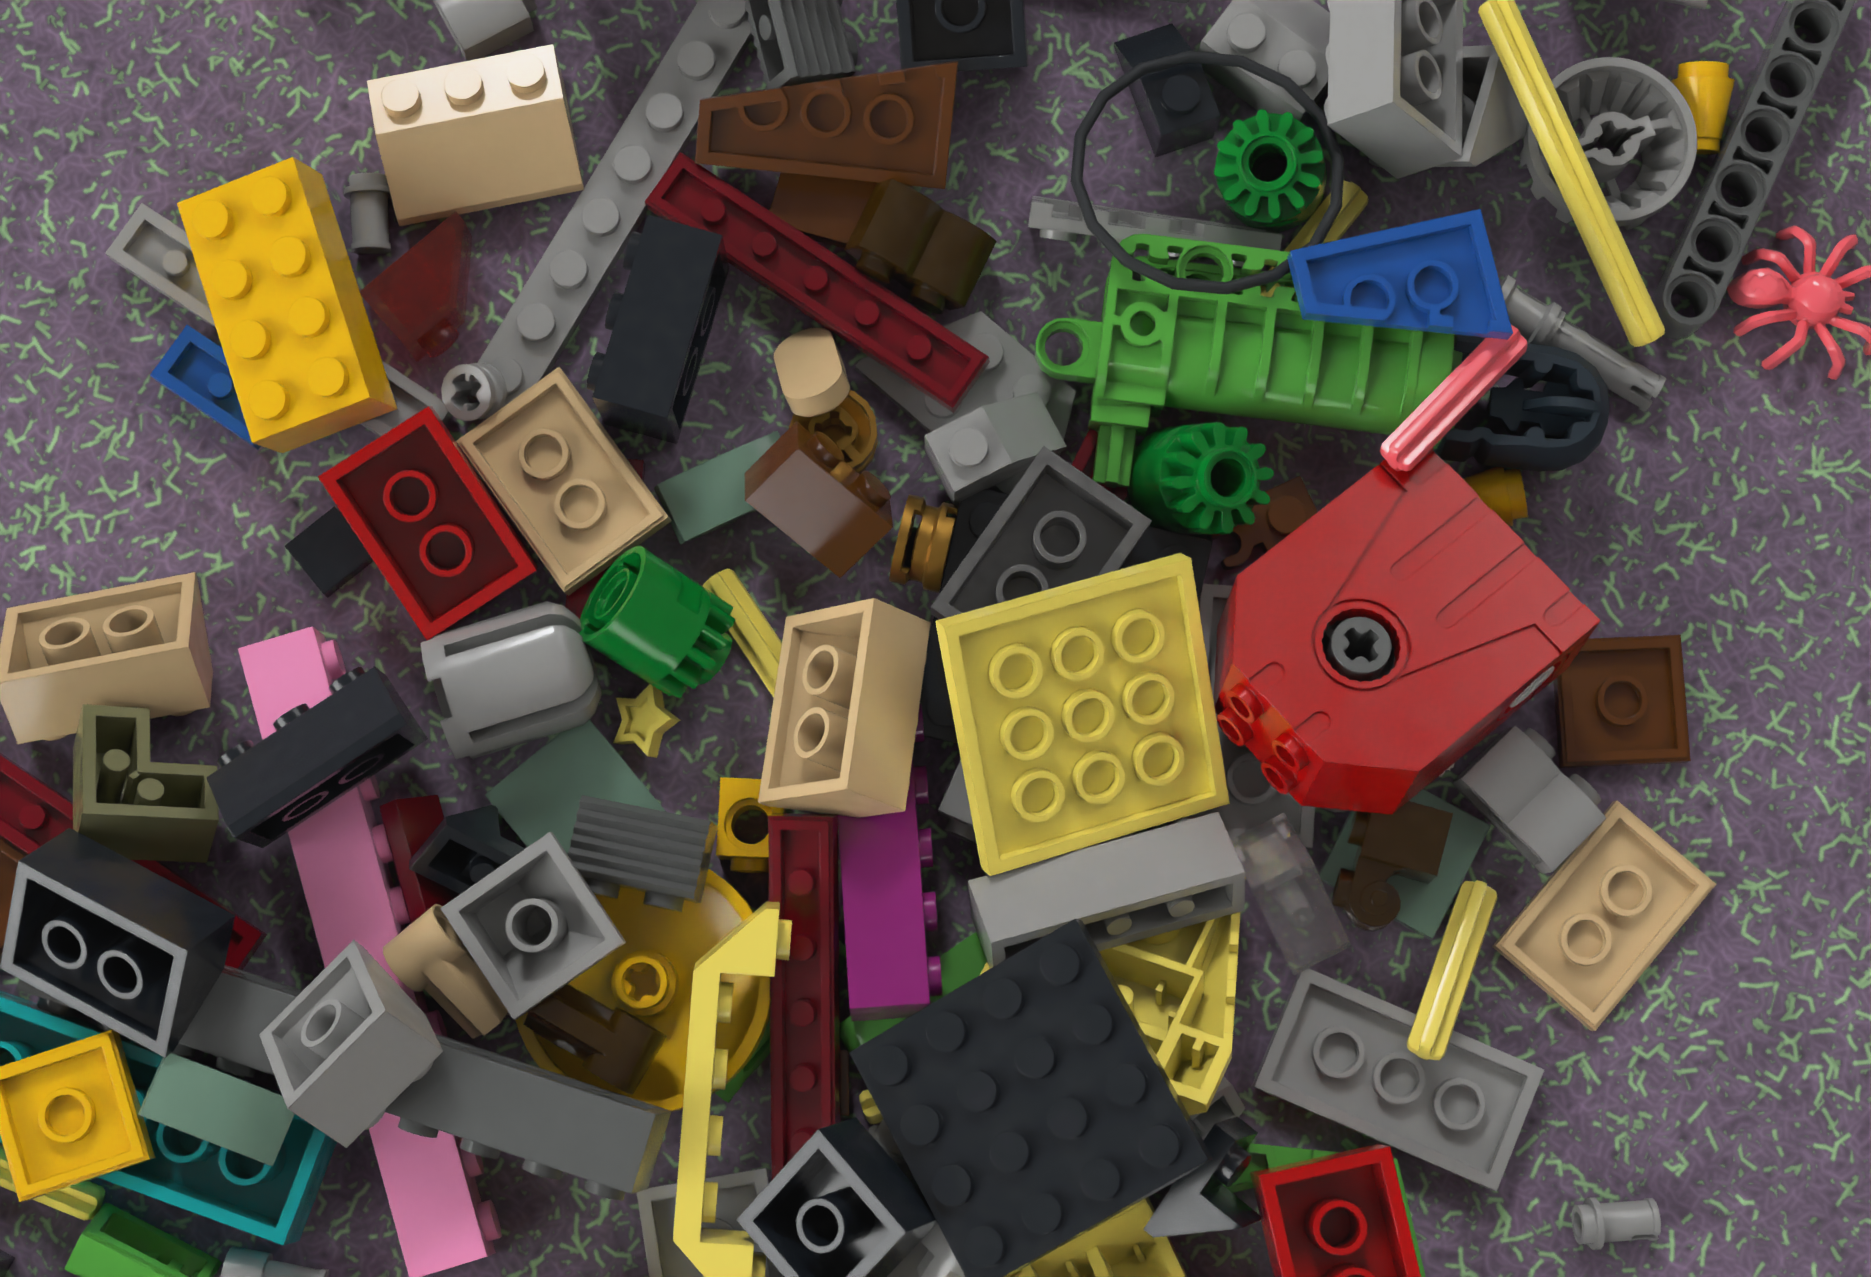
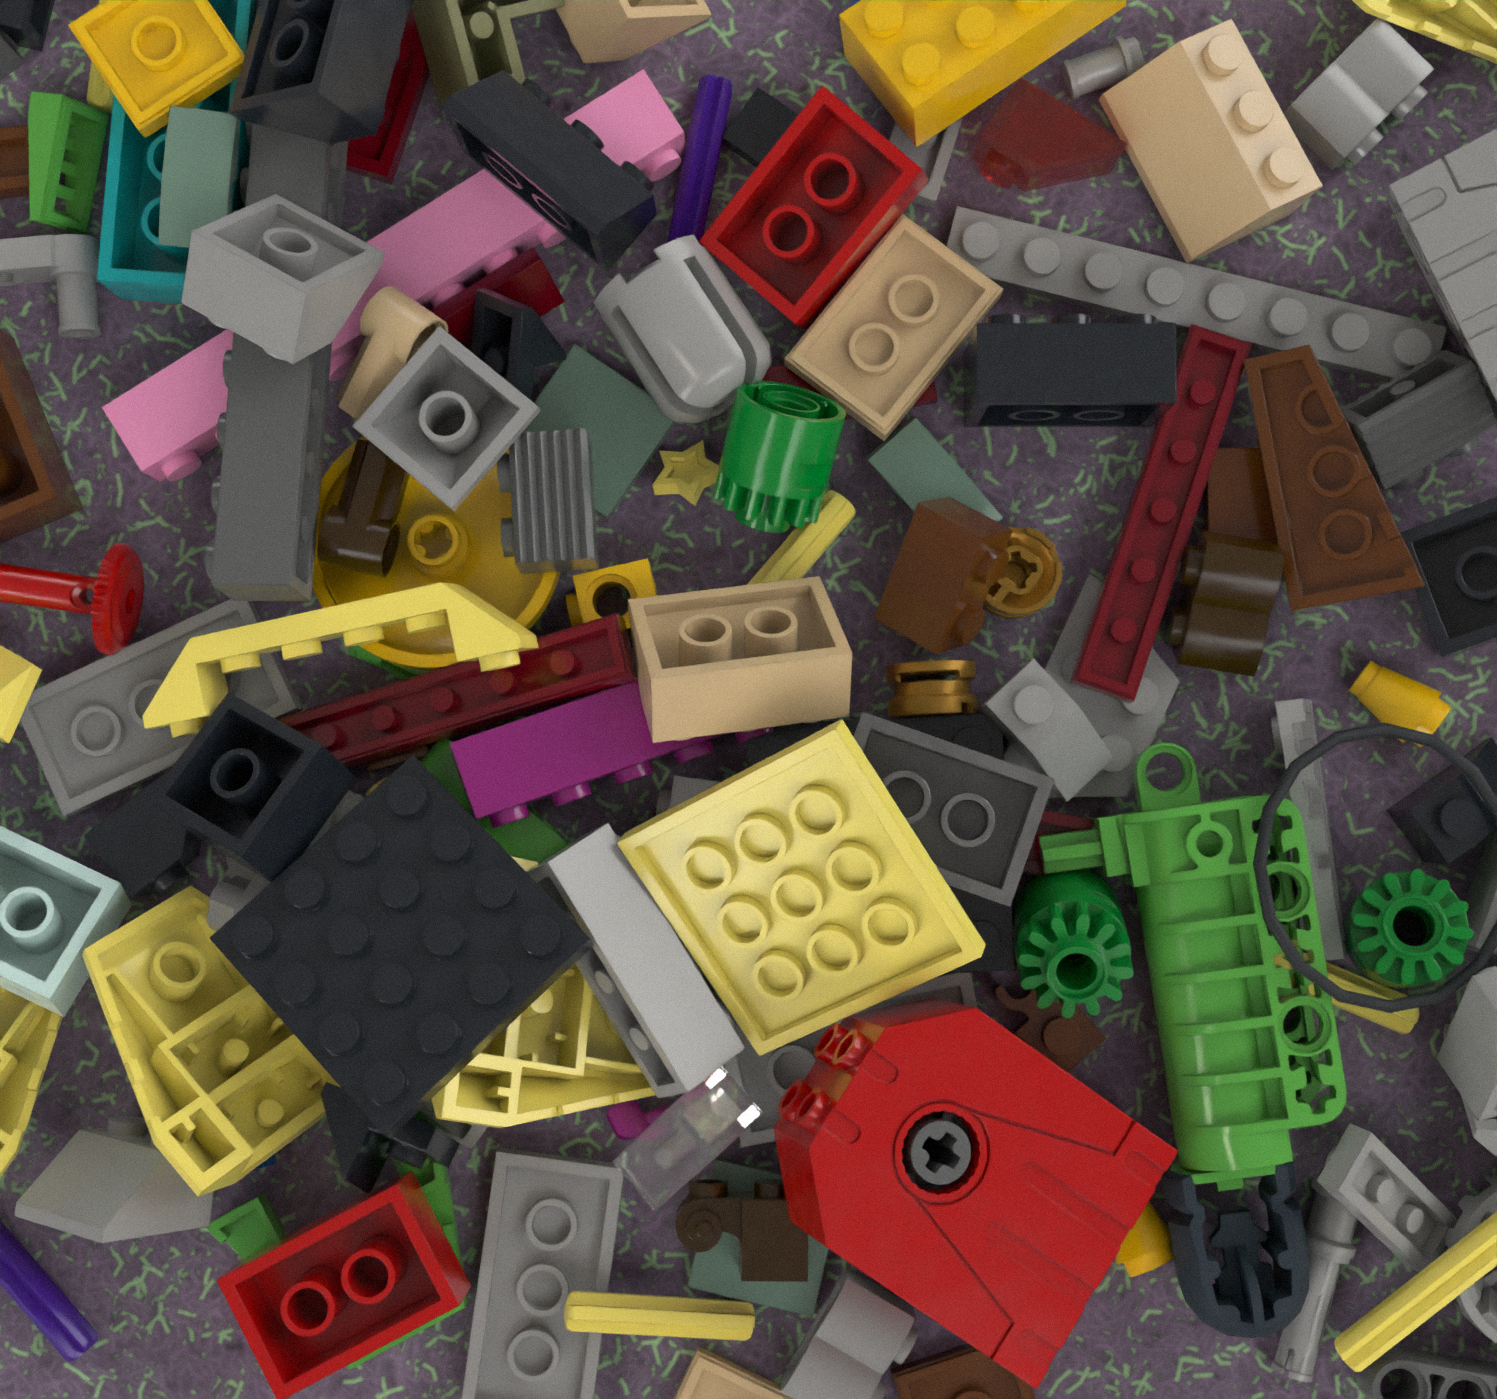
camera: 85 degrees right, 5 degrees up
(342, 624) = (701, 157): none -> dark purple axle
(457, 388) = (956, 199): light grey bush -> none
(811, 372) = (1068, 533): tan tile -> none
(1055, 115) = (1399, 699): none -> yellow cone
(1259, 950) = (629, 1119): none -> magenta hand
(1407, 278) = (1333, 1101): blue wing -> none
(1452, 400) = (1224, 1179): coral axle -> none
(1535, 250) = (1387, 1198): none -> light grey plate

